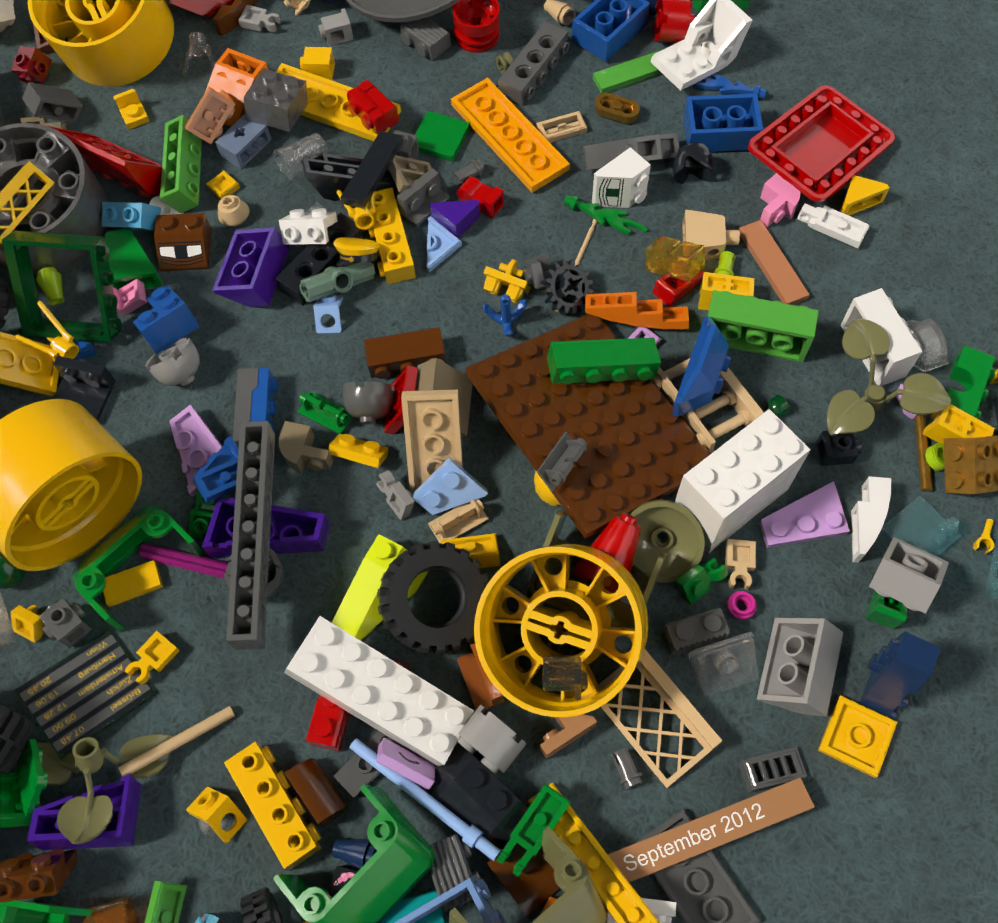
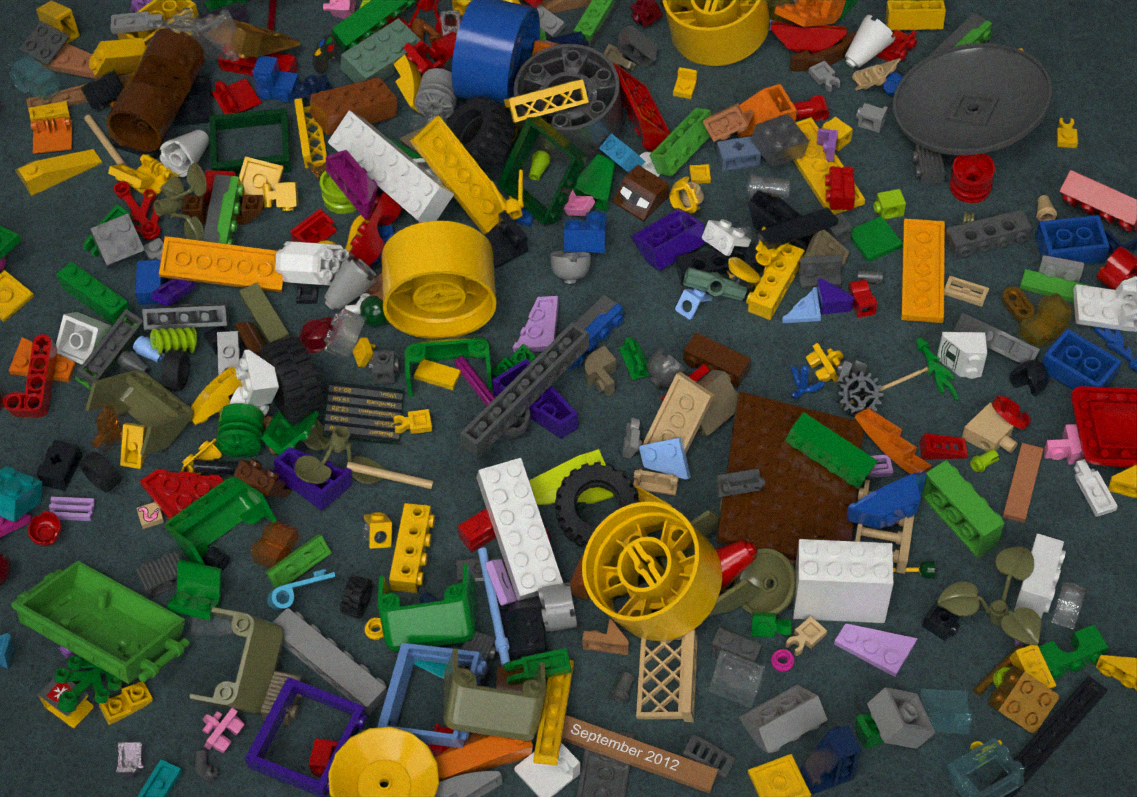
camera: 40 degrees right, 10 degrees down
(197, 47) = (765, 68): clear plant -> none
(219, 203) = (675, 199): none -> yellow helmet
(220, 472) = (533, 344): blue wing -> none
(276, 53) = (815, 108): none -> red piece
(316, 791) = (440, 559): reddish brown brick -> none
(321, 70) = (829, 140): none -> medium lavender bracket
(358, 450) = (633, 396): yellow plate -> none
(426, 94) = (890, 204): none -> lime brick
(564, 675) = (624, 588): clear smoke bracket -> none
(624, 50) = (1061, 268): none -> light grey plate
(658, 103) = (1048, 323): none -> clear yellow brick
(682, 263) = (950, 427): clear yellow piece -> none
(706, 206) = (1011, 412): none -> red tile
(720, 282) = (970, 471): yellow hinge -> none
(869, 515) = (920, 674): white slope -> none

